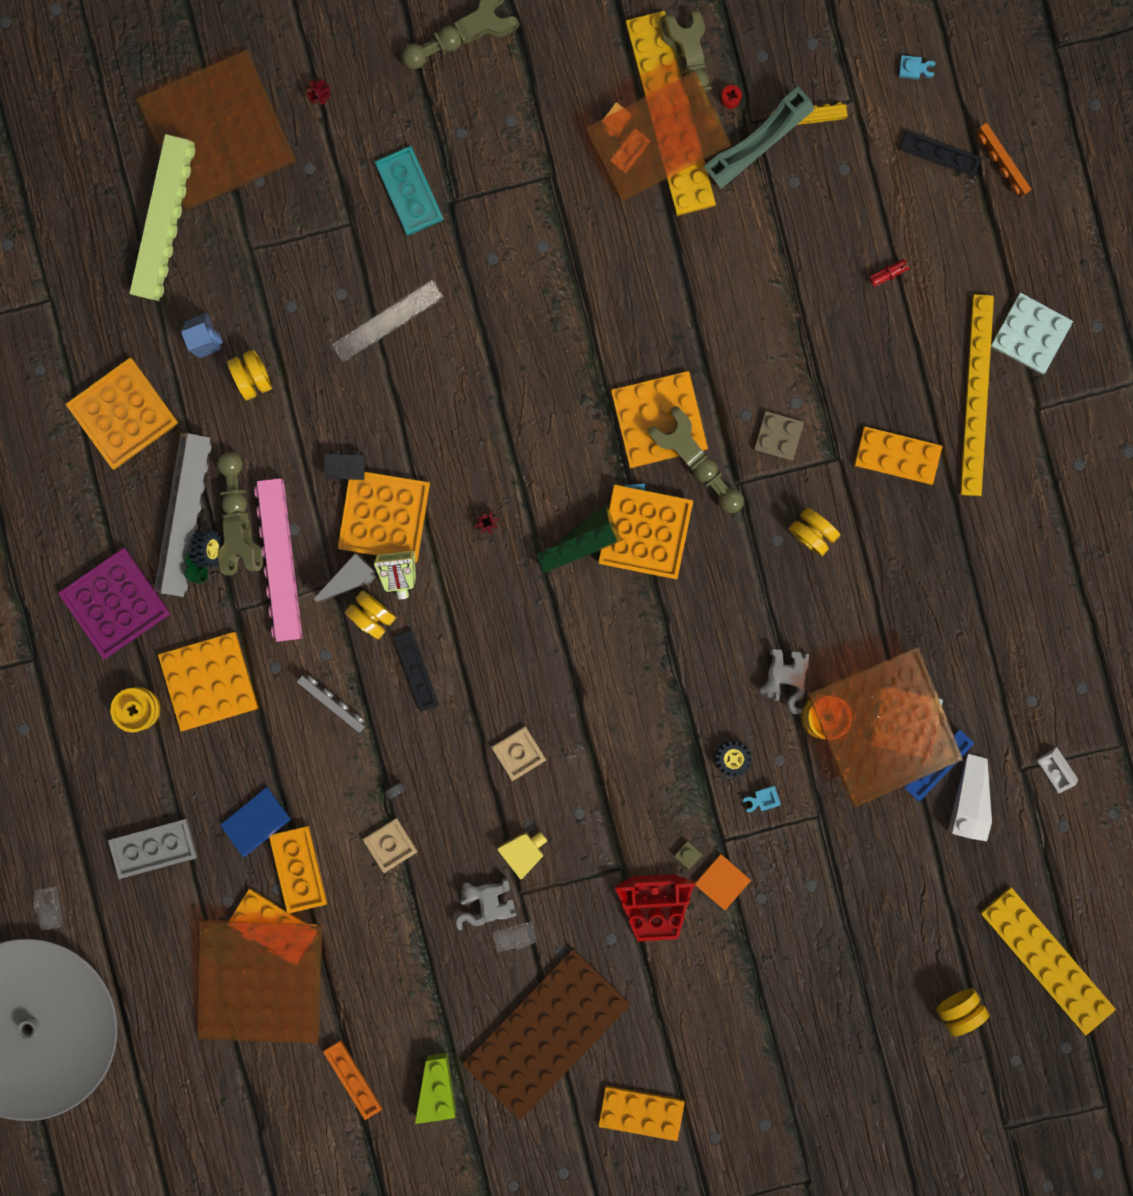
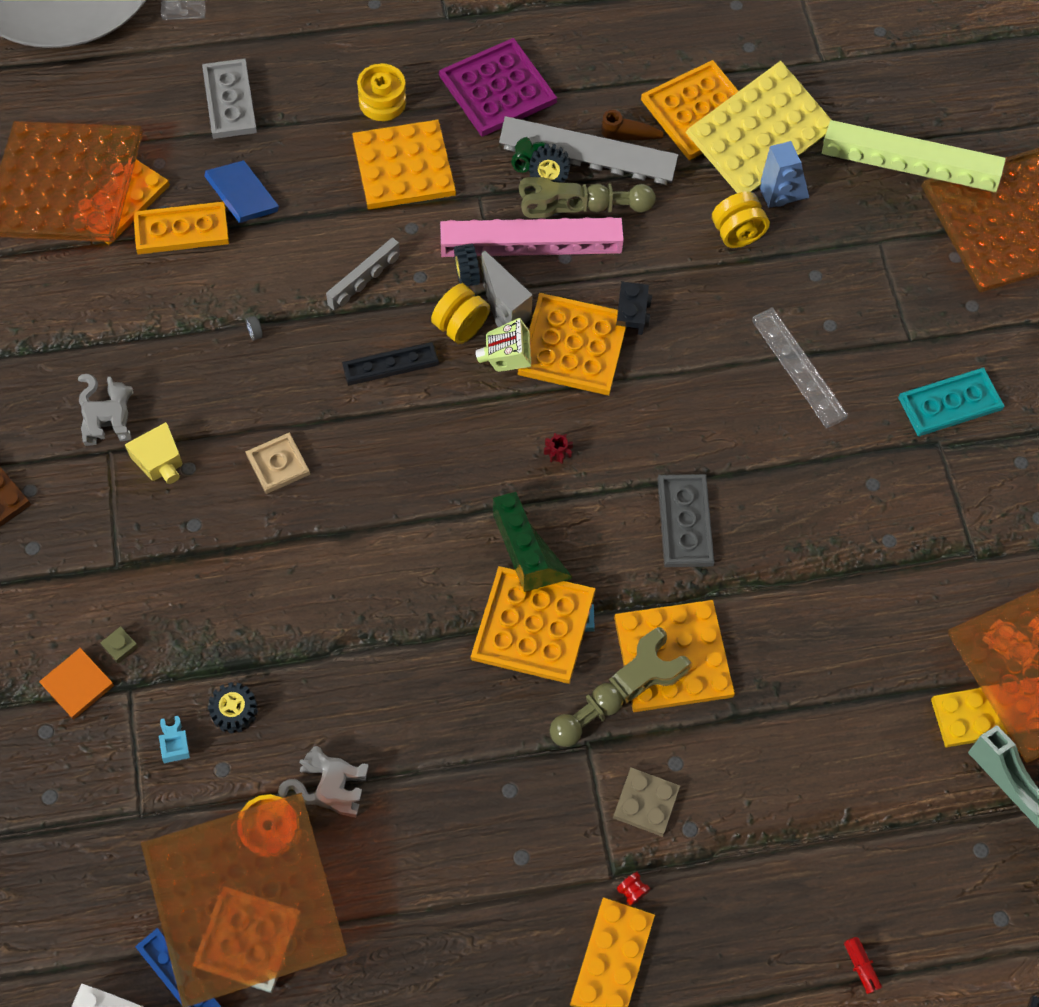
camera: 90 degrees right, 25 degrees down
(142, 357) = (759, 116): none -> light yellow plate
(150, 479) = (625, 129): none -> reddish brown piece
(318, 614) = (466, 264): none -> black wheel
(390, 845) = (192, 321): tan tile -> none
(514, 937) = (57, 440): clear slope -> none
(540, 414) = (685, 520): none -> dark grey tile
(655, 905) = (63, 595): red wedge -> none
(812, 534) = (517, 828): yellow wheel -> none
(847, 443) = (633, 888): none -> red wheel

